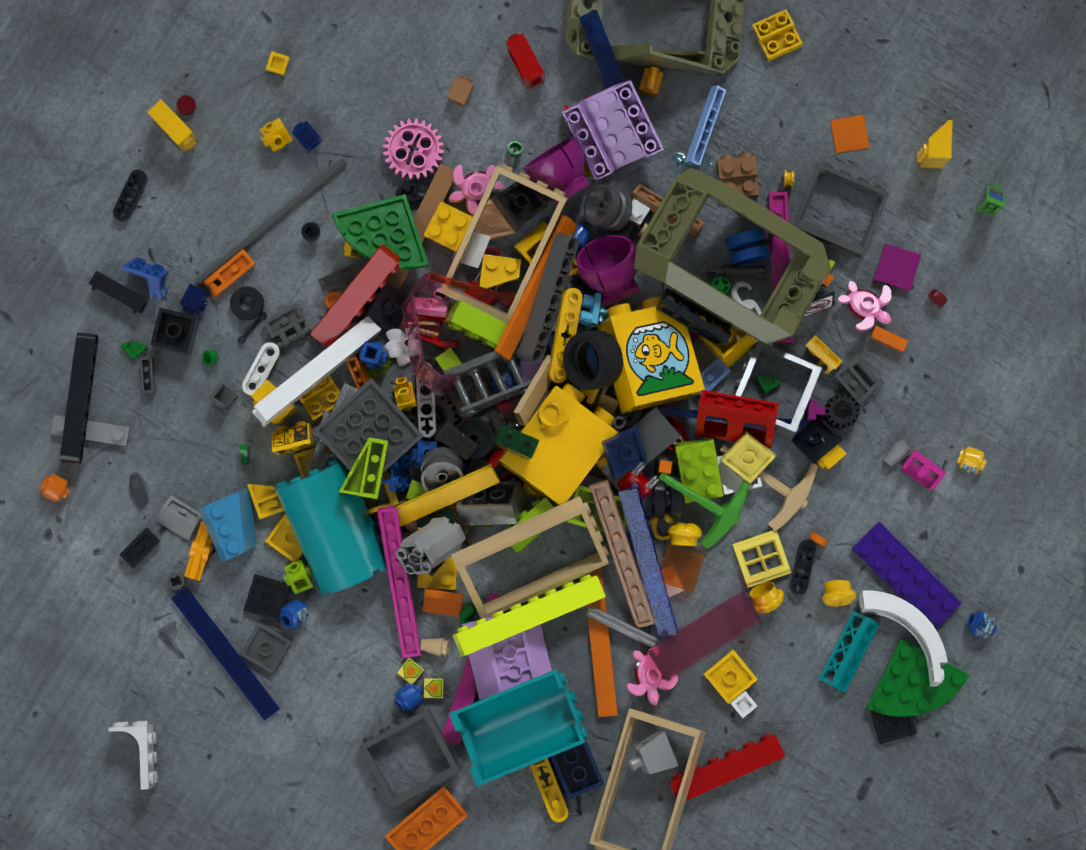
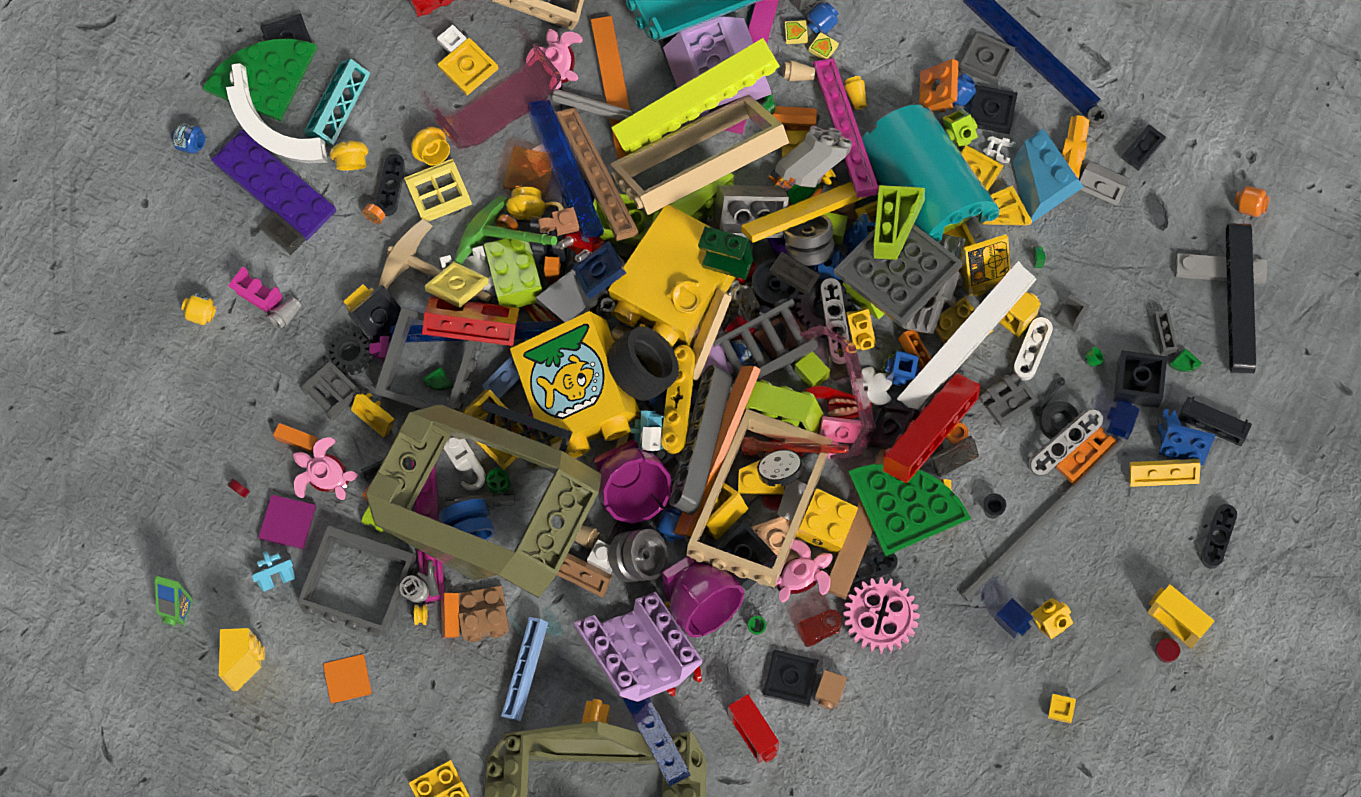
camera: 175 degrees right, 15 degrees down
(167, 251) = (1164, 472): none -> yellow plate
(242, 279) = (1068, 444): none -> light grey beam
(271, 566) = (993, 140): none -> white piece
(305, 610) = (945, 92): none -> orange piece
(386, 623) = (856, 92): none -> yellow cone
(467, 141) = (816, 628): none -> clear red piece
(484, 268) = (780, 467): none -> tile
(491, 106) = (791, 678): none -> black tile
(590, 298) = (651, 438): none -> white plate
(653, 500) = (562, 221): none -> nougat plate
(702, 519) = (507, 222): none -> orange tile
(764, 176) = (450, 615): none -> orange piece
(779, 203) = (430, 579): none -> dark grey bar
(789, 199) = (417, 593): none -> light grey wheel
(899, 528) = (281, 233): none -> clear smoke plate
(909, 226) = (284, 568): none -> medium azure hips

